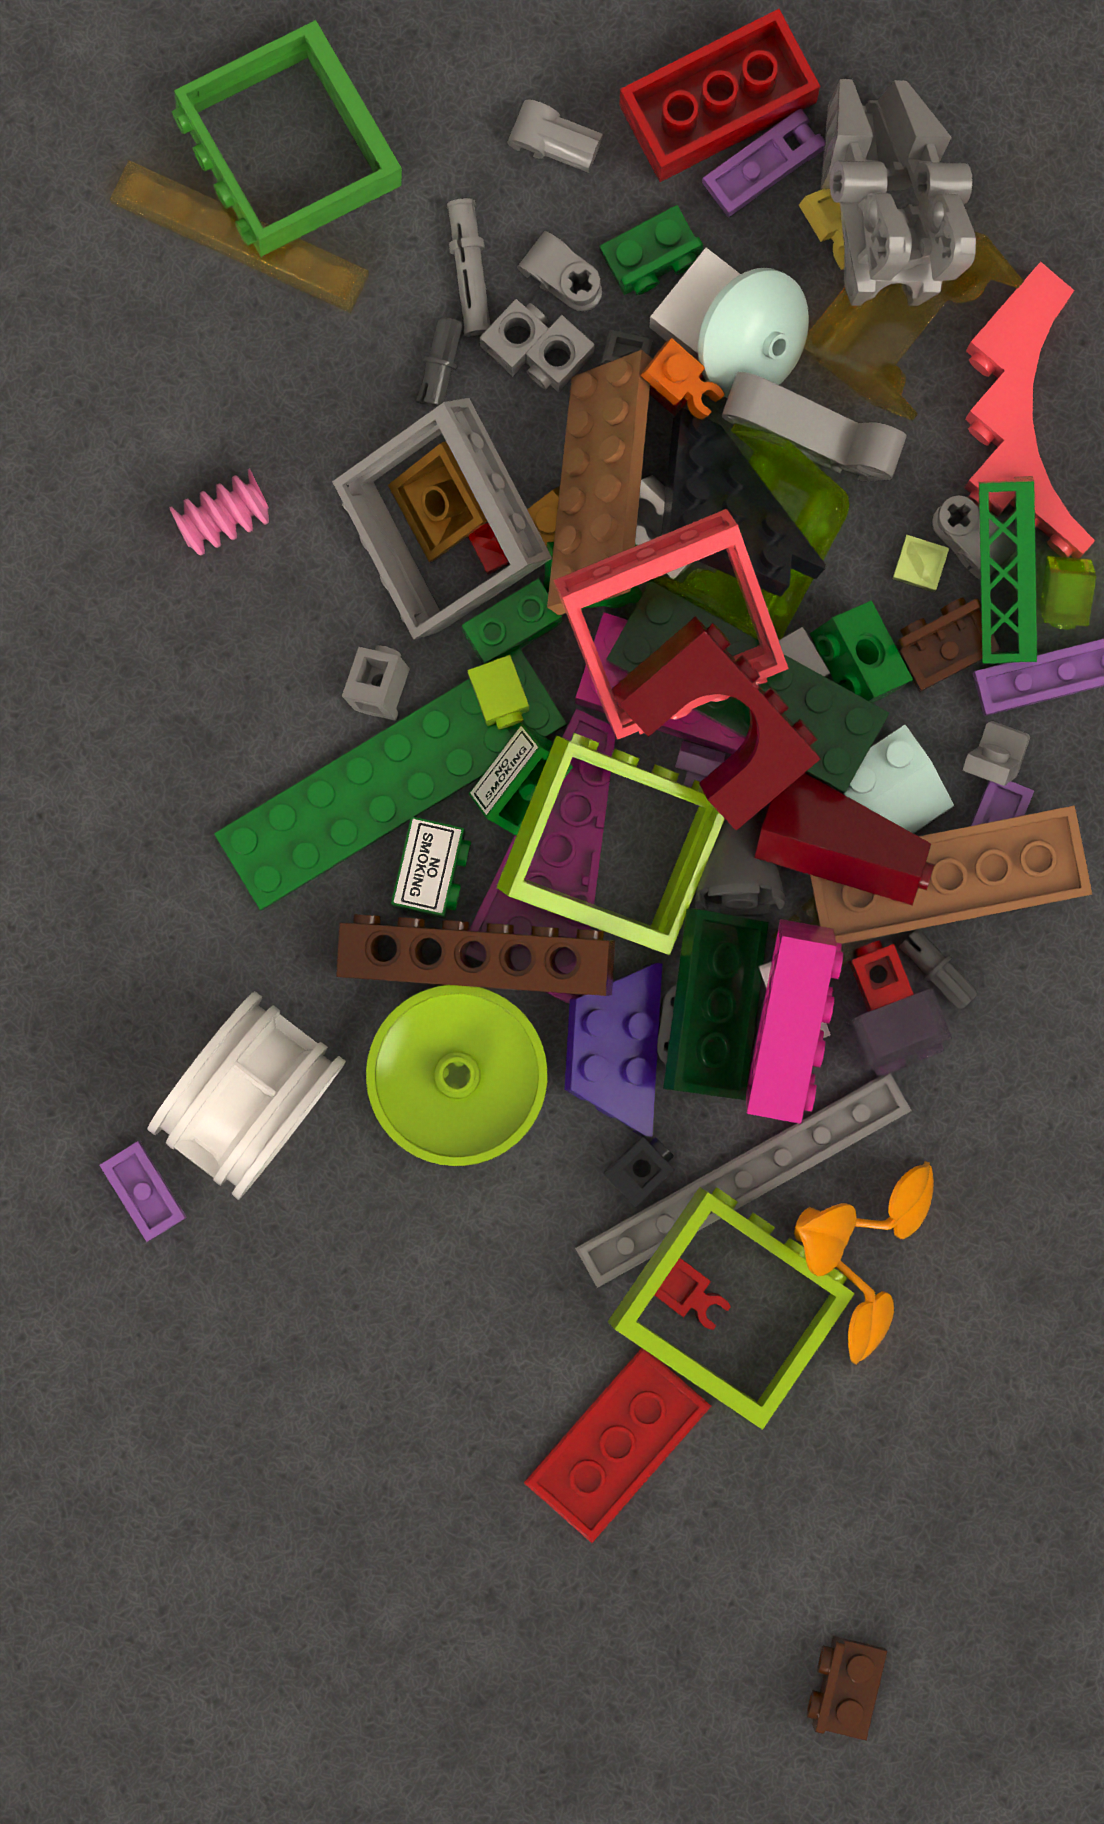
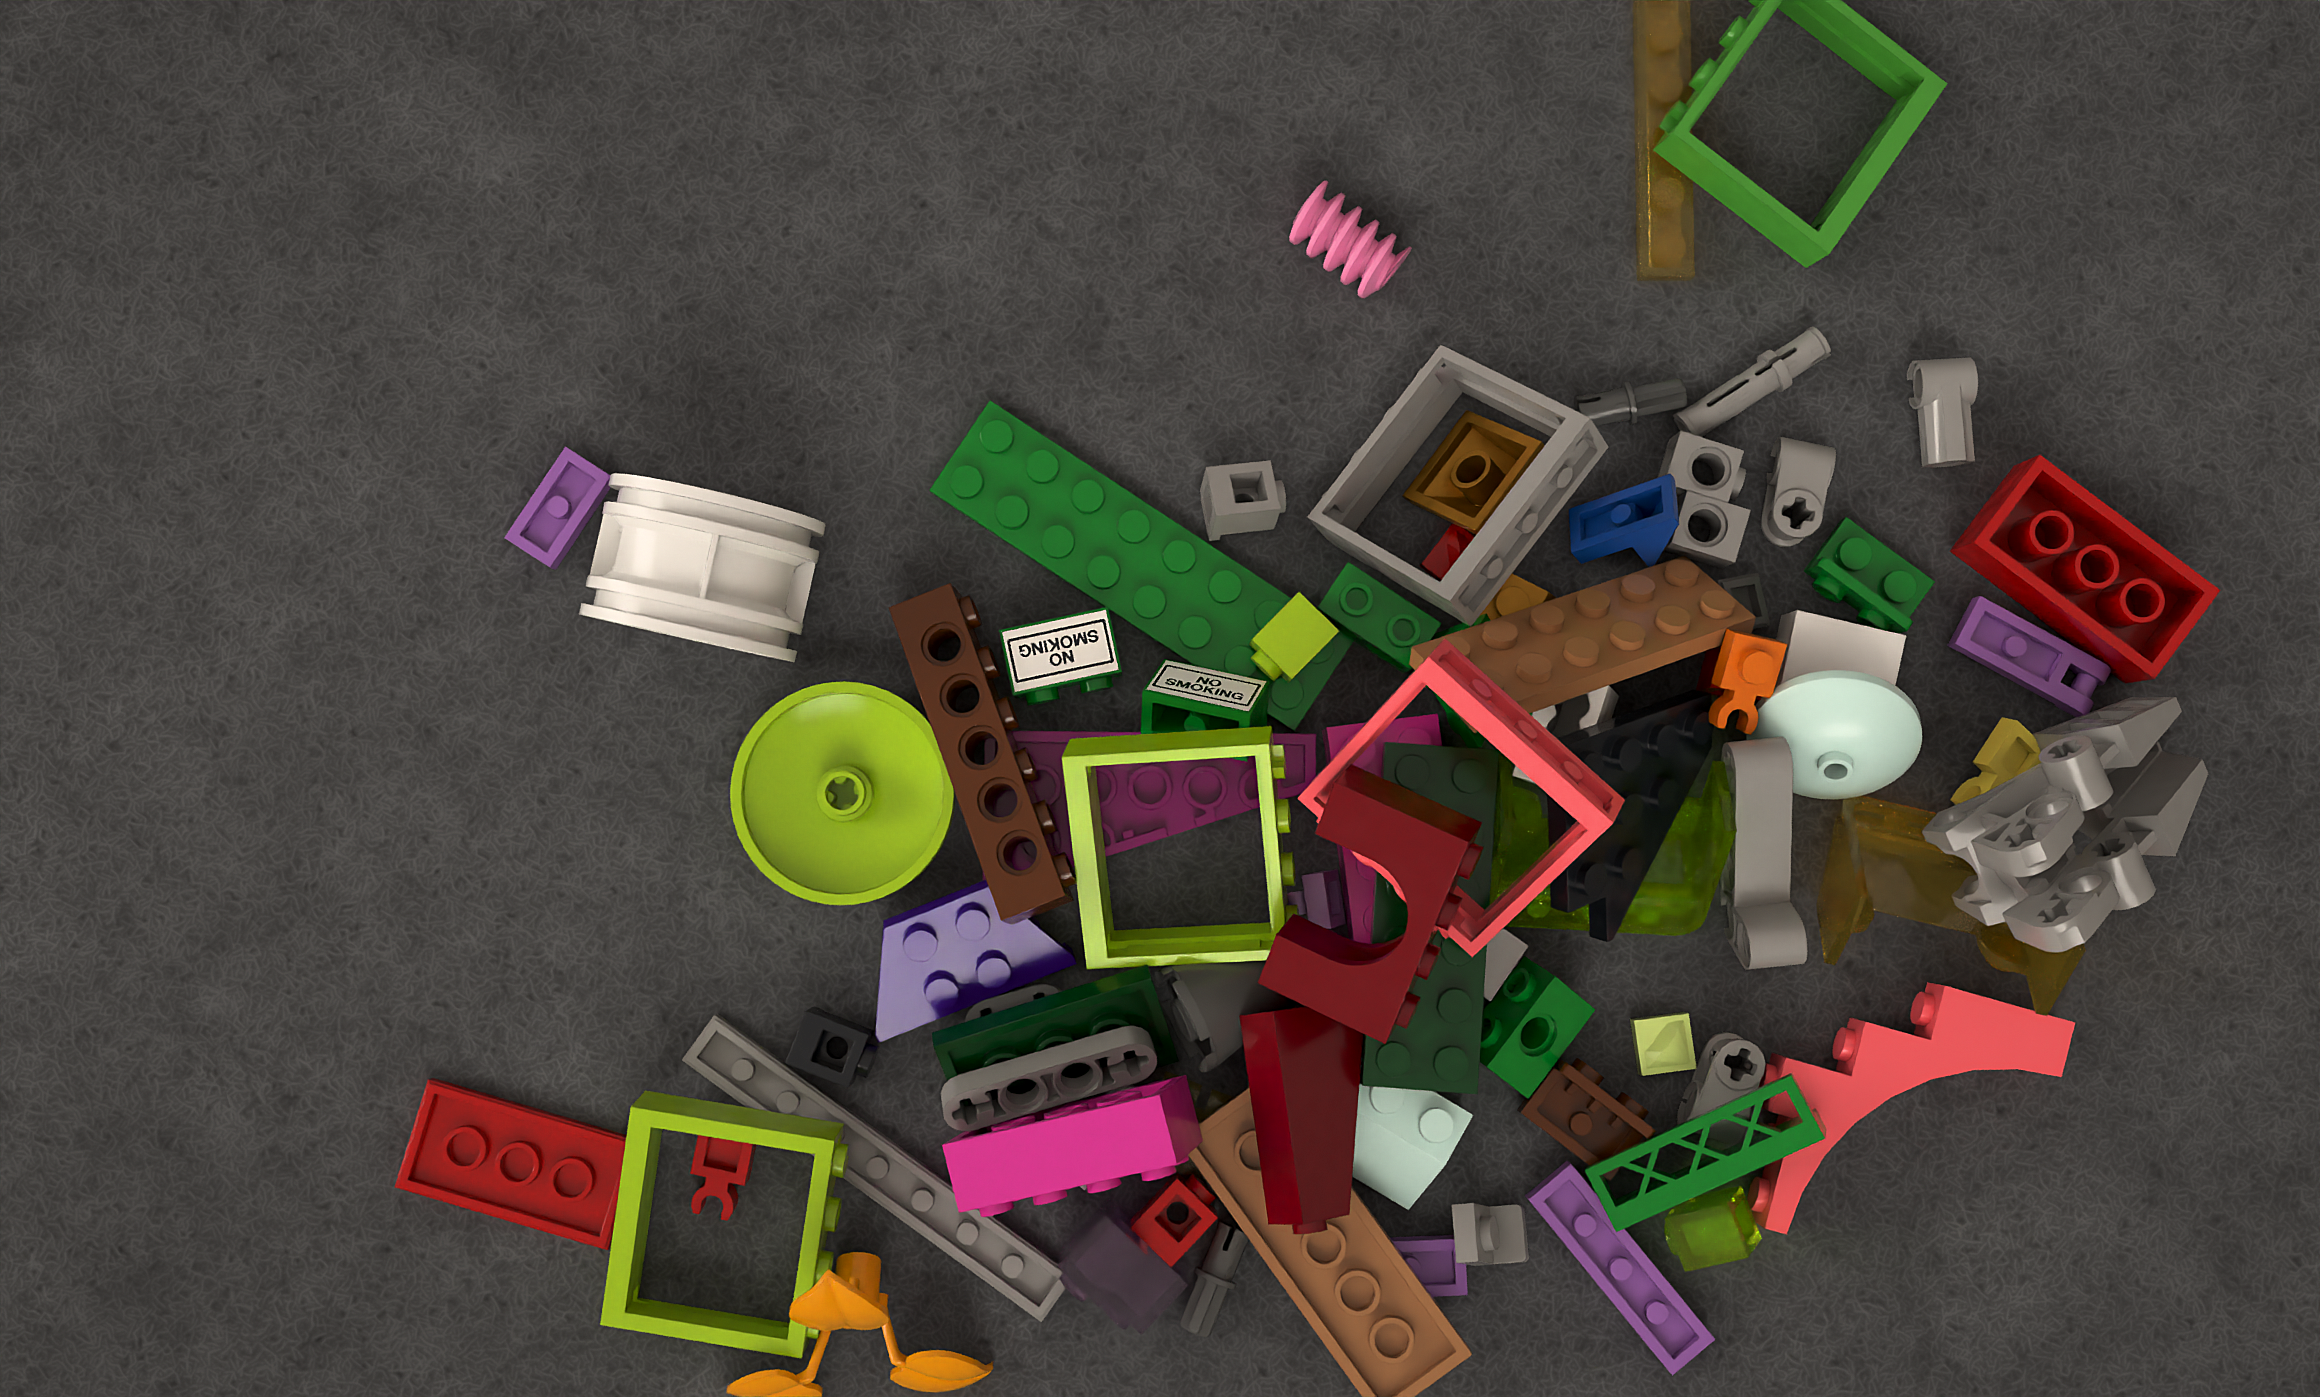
camera: 60 degrees right, 0 degrees up
(525, 407) = (1633, 518): none -> blue slope
(729, 1018) = (1051, 1086): none -> light grey beam

